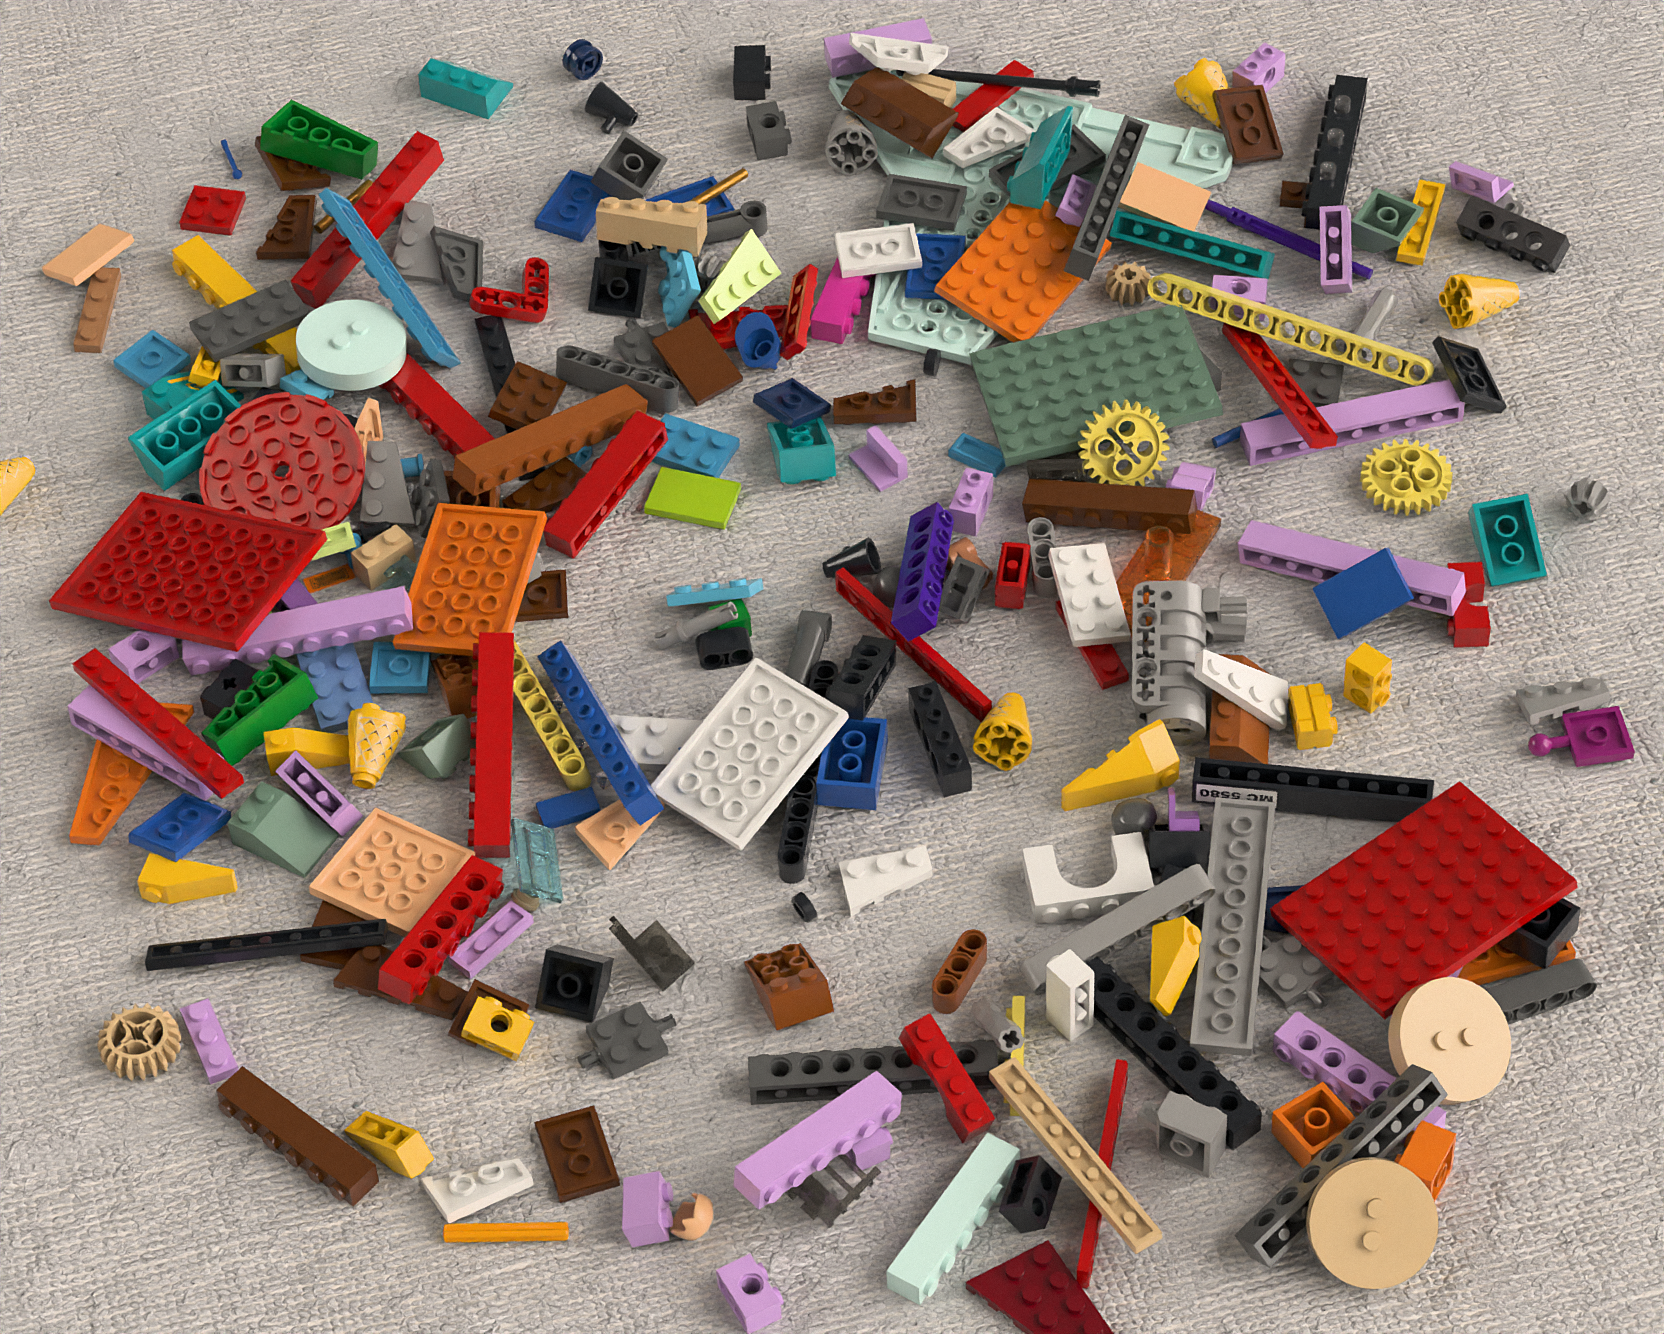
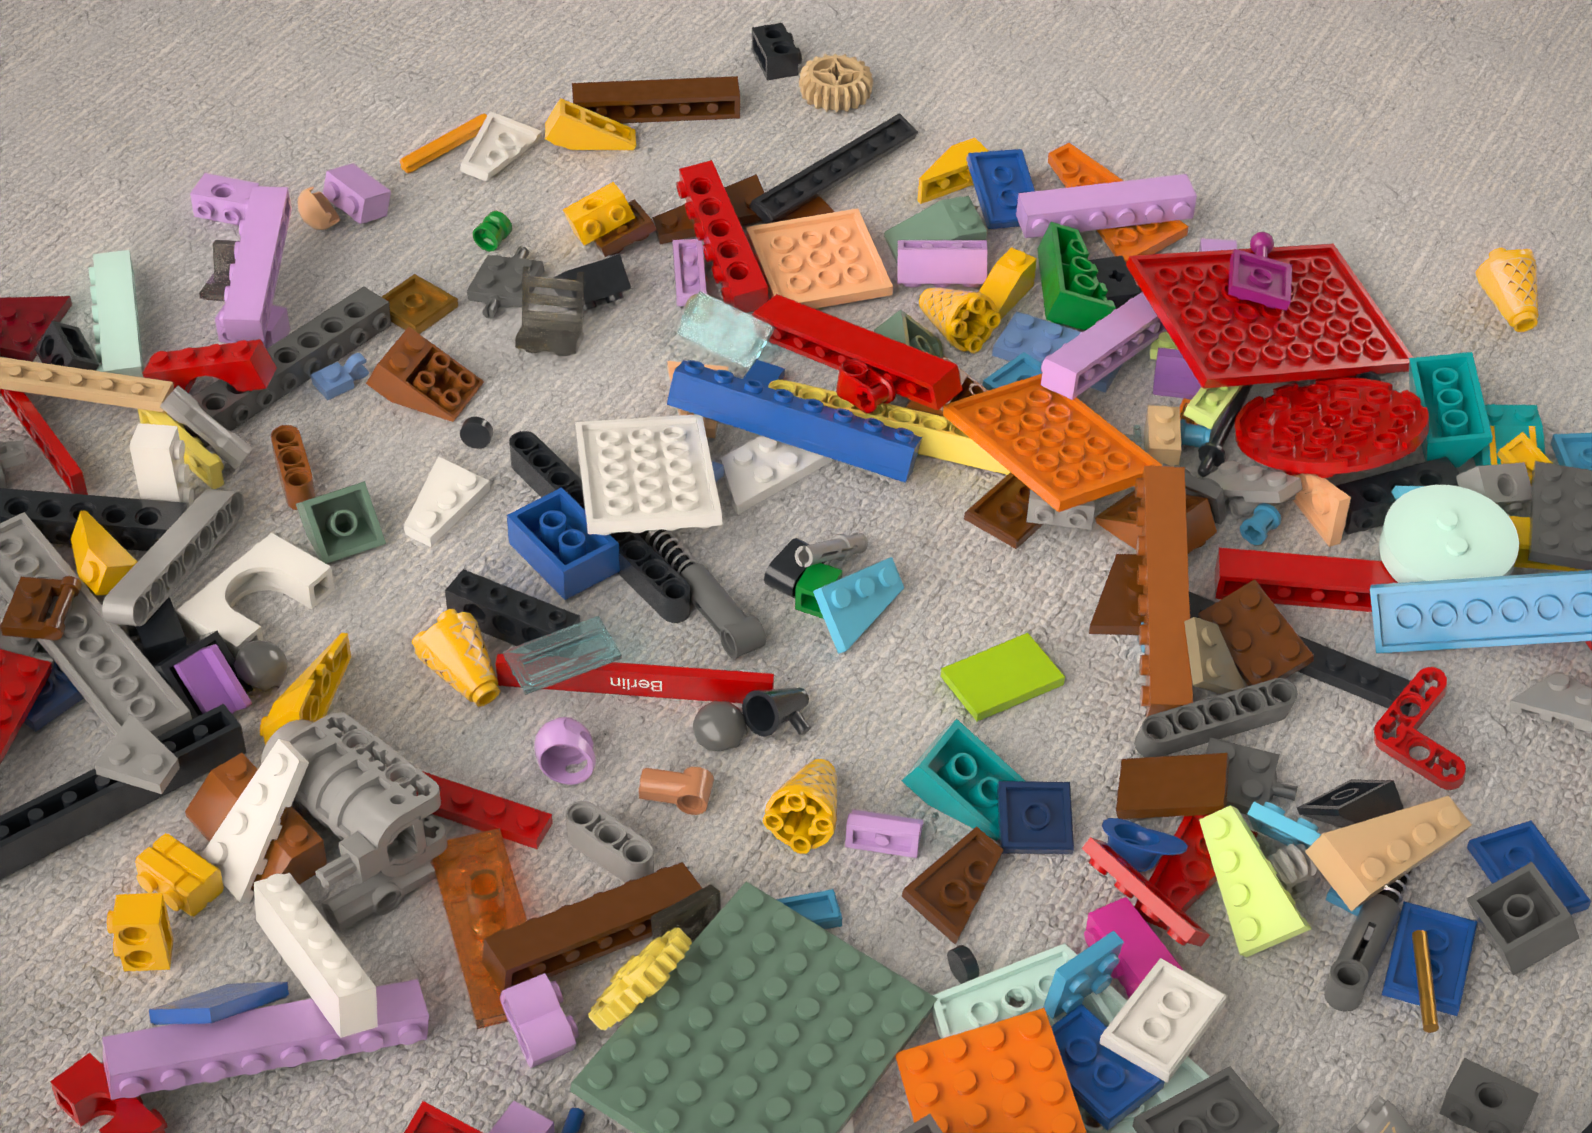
camera: 130 degrees right, 5 degrees down
(140, 1119) = (775, 51): none -> black brick
(158, 723) = (1107, 198): red plate -> none
(163, 581) = (1258, 277): none -> magenta plate
(209, 1041) = (796, 117): lavender plate -> none
(460, 259) = (1512, 719): dark grey wing -> none
(530, 710) = (863, 386): none -> red piece
(577, 1154) = (452, 206): reddish brown tile -> none
(578, 394) = (1210, 658): none -> dark tan wing
(584, 1091) = (492, 231): none -> green wheel
(605, 484) = (1080, 614): red brick -> none
(695, 448) = (1069, 719): dark azure plate -> none
(714, 1073) = (418, 304): none -> pearl gold tile
(844, 1039) = (337, 379): none -> medium blue plate
(863, 676) = (643, 643): black brick -> none
(896, 284) = (1083, 975): none -> dark azure plate
(907, 492) = (805, 807): none -> yellow cone
(922, 571) = (691, 719): dark purple brick -> none
(951, 665) = (562, 655): none -> clear light blue piece
(962, 589) = (638, 736): dark grey brick -> none
(971, 501) = (742, 842): lavender brick -> none
(971, 901) = (341, 523): none -> sand green slope
(1007, 625) = (563, 744): none -> lavender helmet
(1012, 575) = (612, 790): red brick -> none
(1089, 595) = (514, 819): white plate -> none
(1253, 946) = (31, 603): none -> reddish brown plate
(1281, 772) = (138, 758): none -> light grey wing
(1286, 580) = (316, 955): none -> white brick

